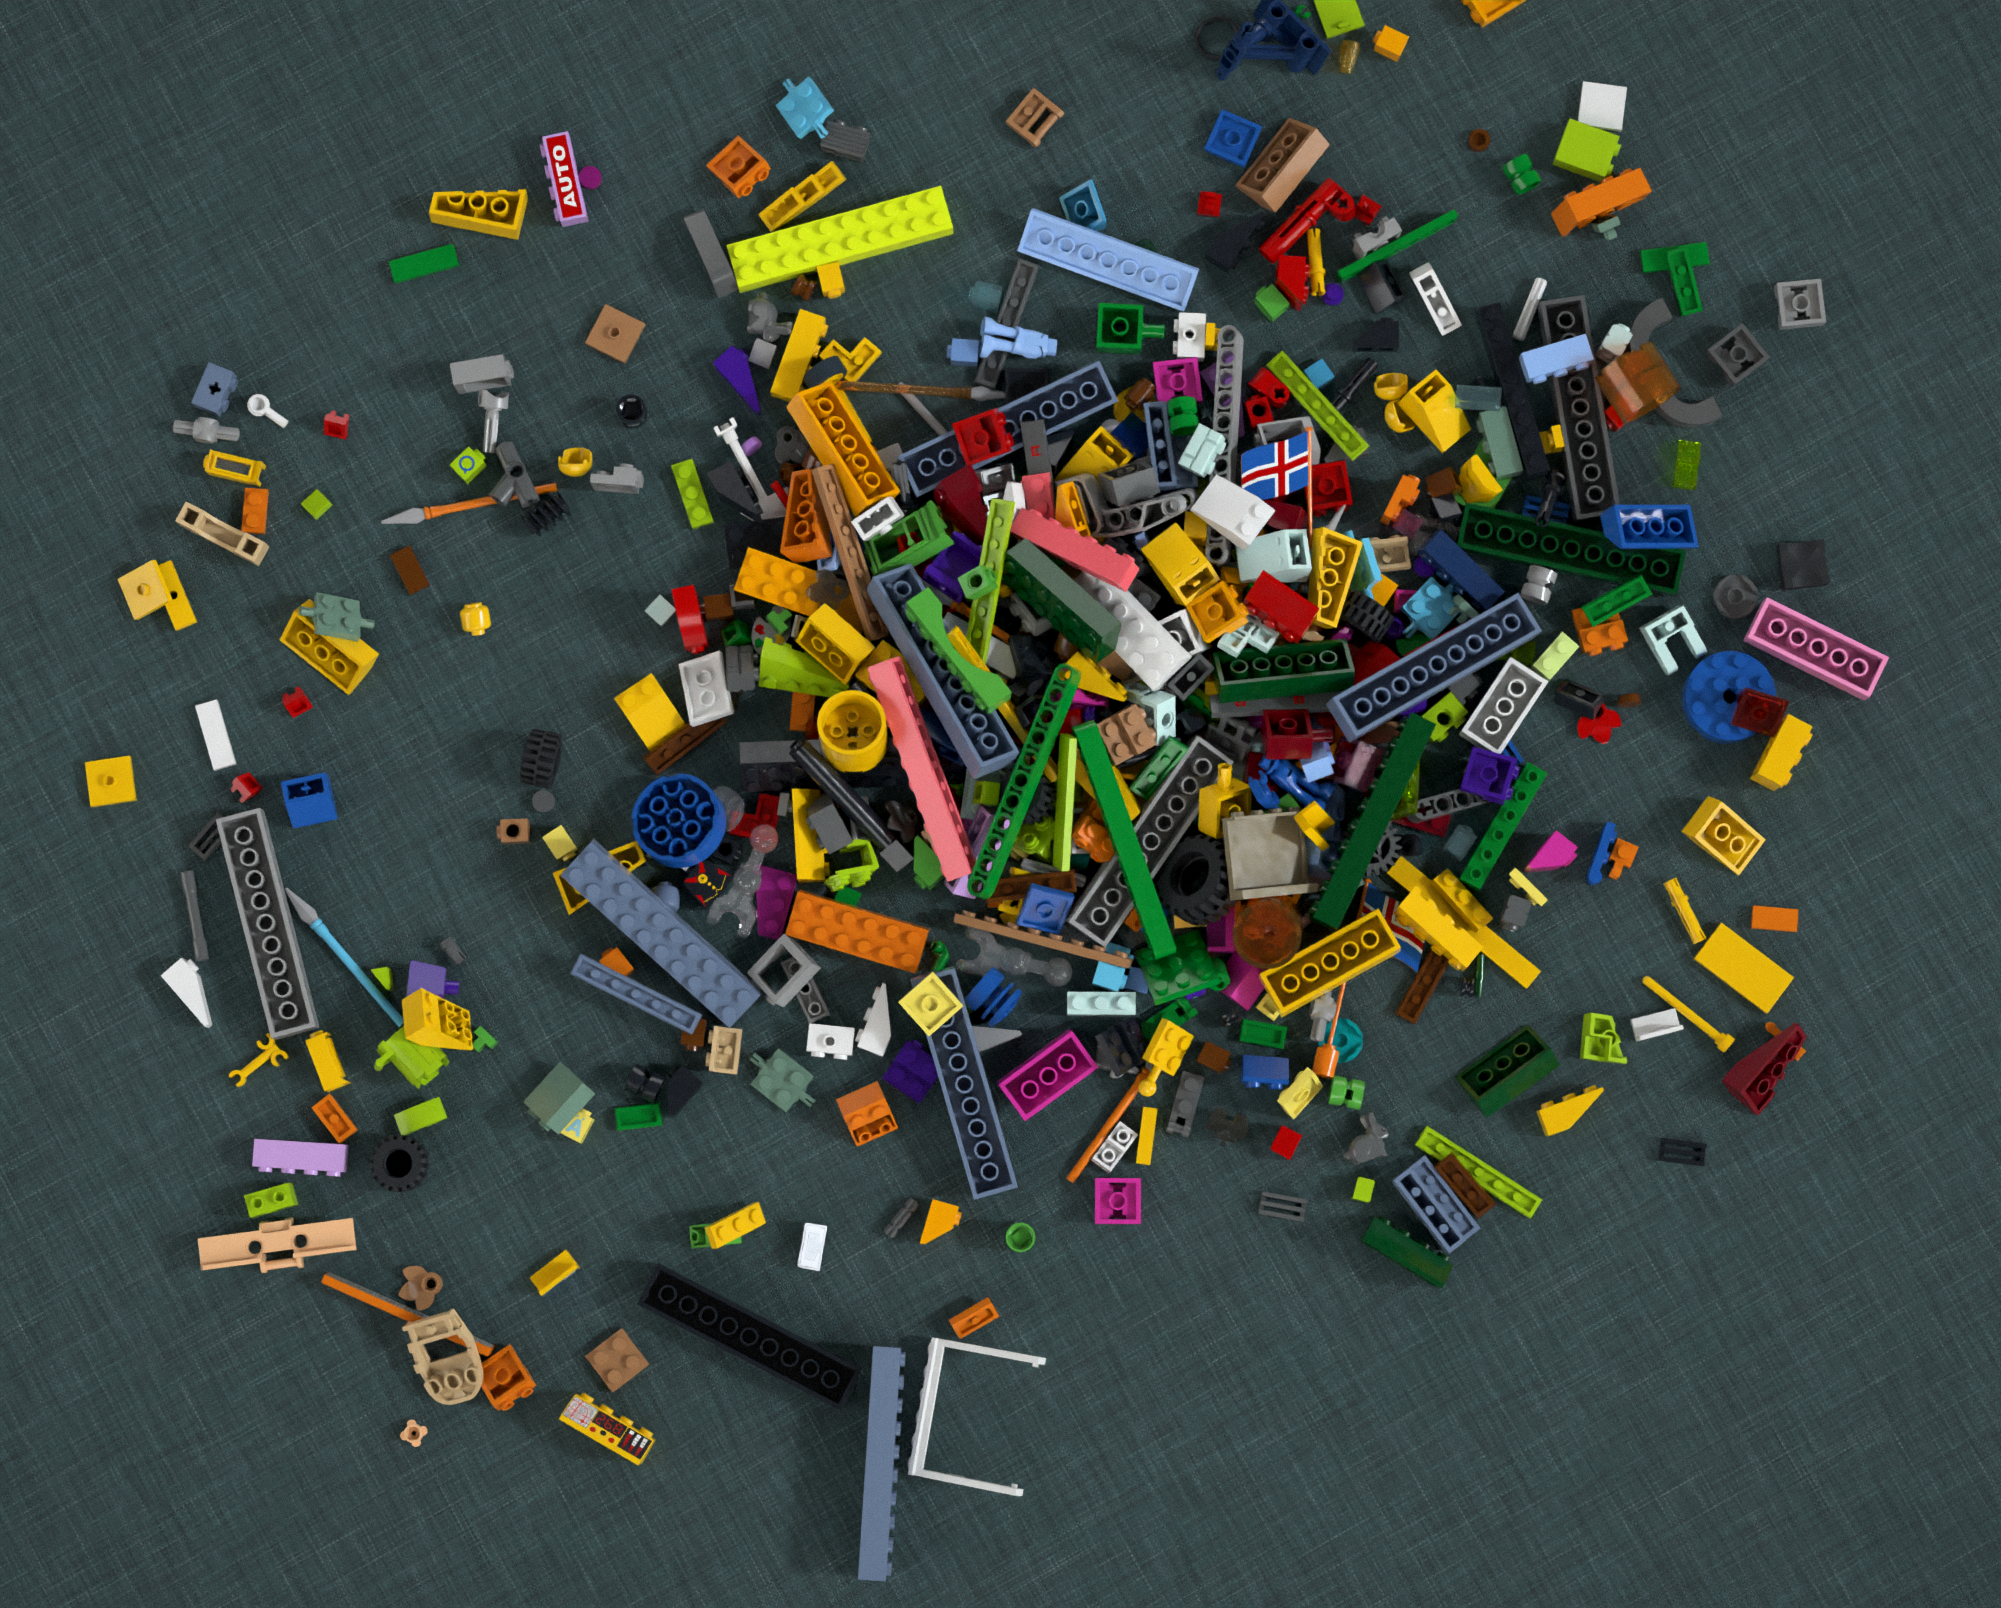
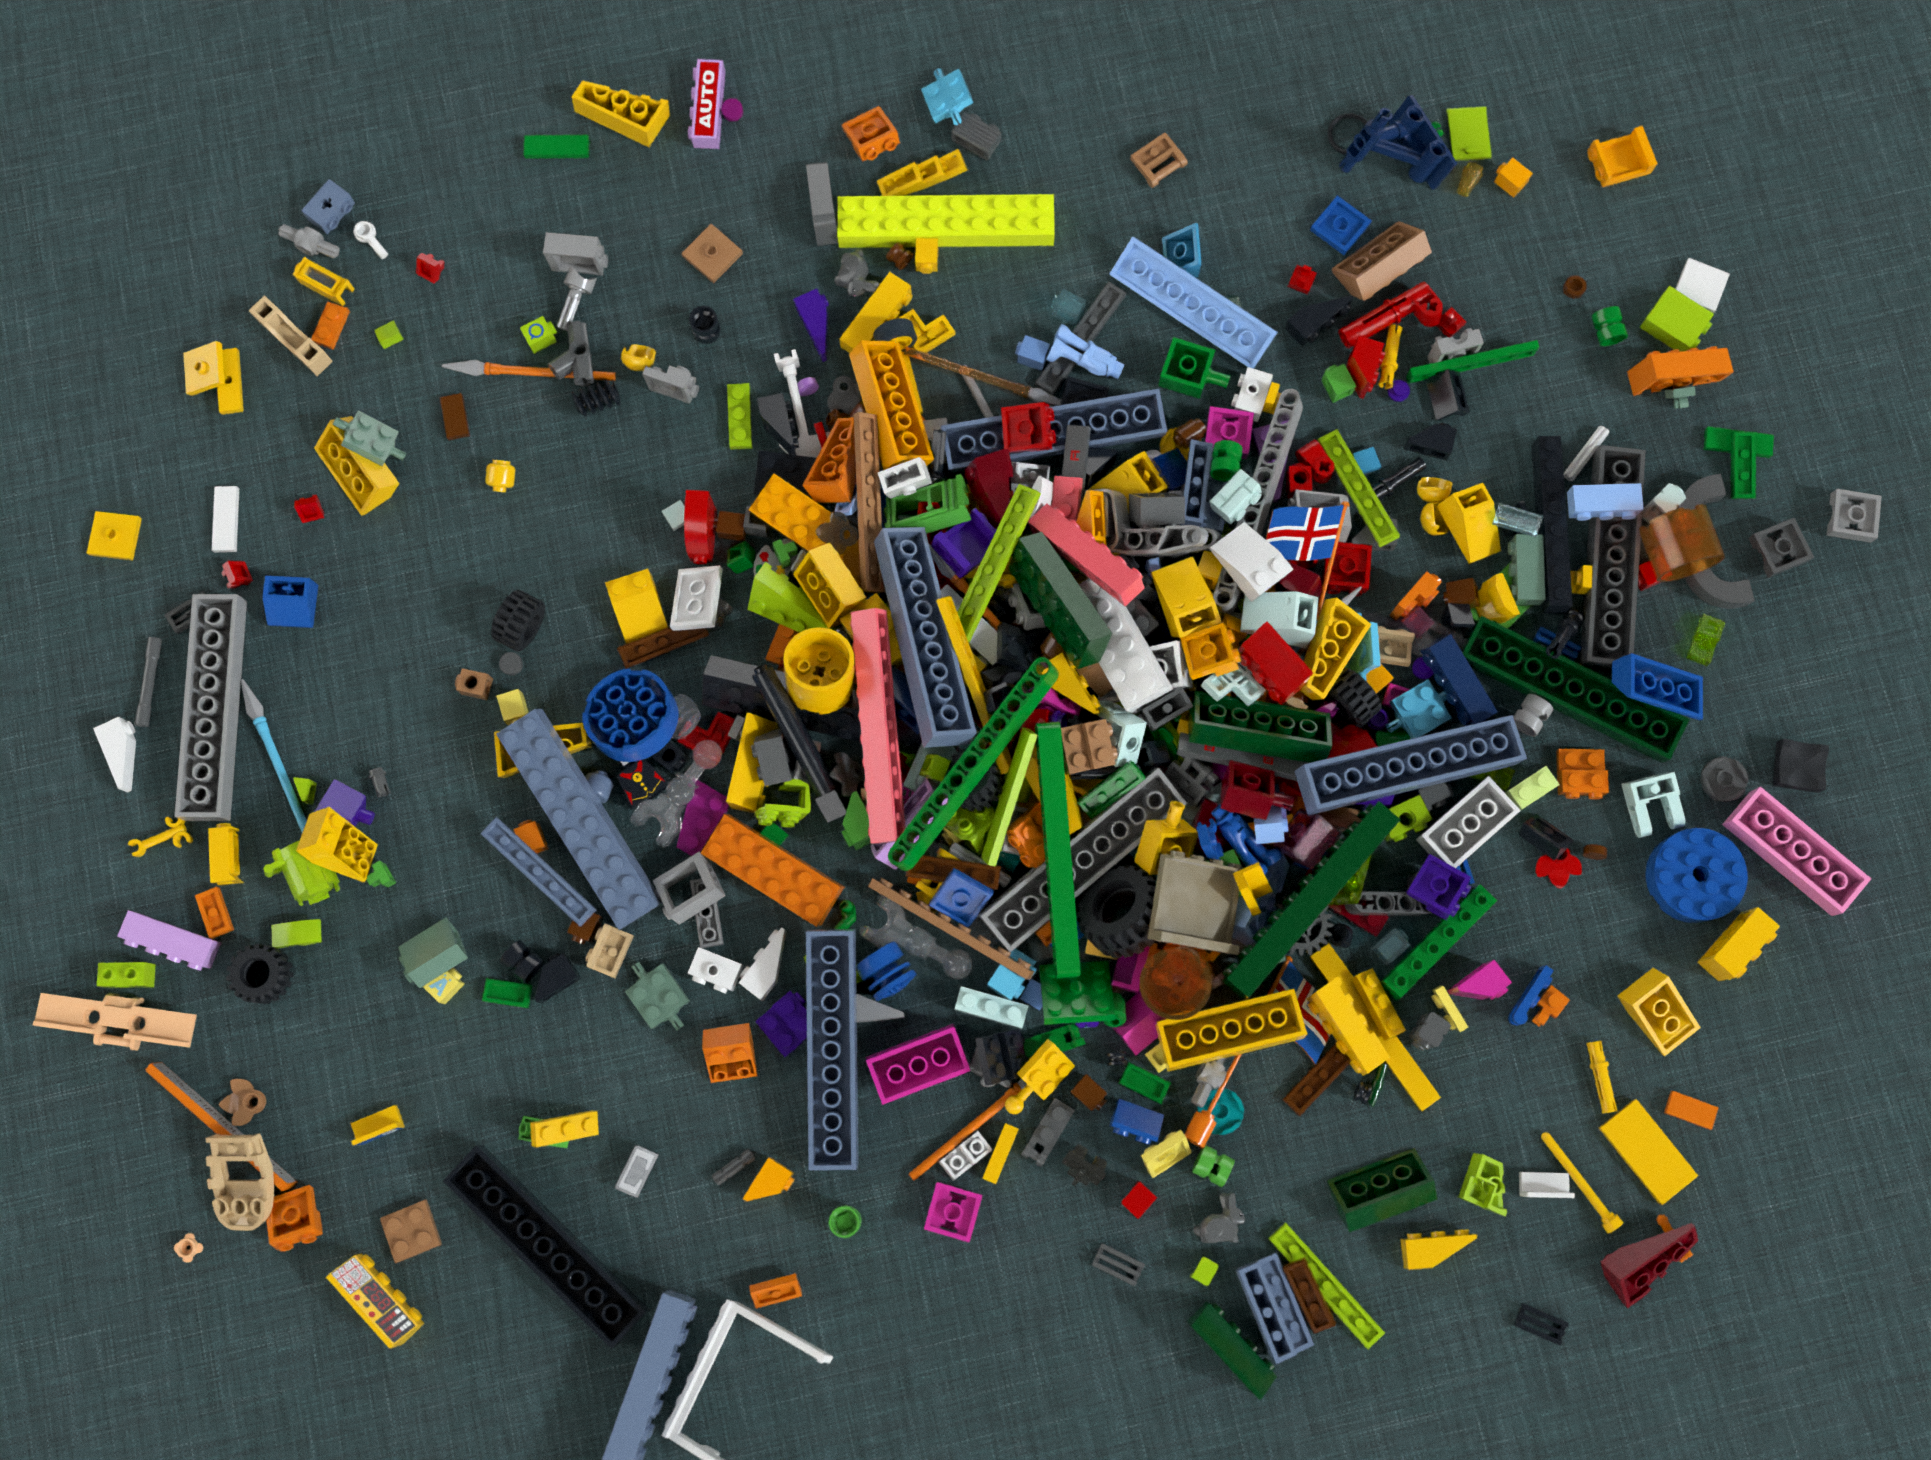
camera: 20 degrees right, 5 degrees down
(741, 668) = (734, 587): dark grey brick -> none
(763, 353) = (844, 305): light grey slope -> none
(930, 1003) = (818, 959): light yellow plate -> none
(969, 582) = (975, 556): bright green brick -> none
(985, 686) = (961, 660): bright green arch -> none
(1435, 298) = (1497, 419): white slope -> none
(1463, 607) = (1453, 716): sand green tile -> none
(1616, 600) = (1608, 749): green tile -> none
(1759, 711) = (1729, 896): clear red slope -> none

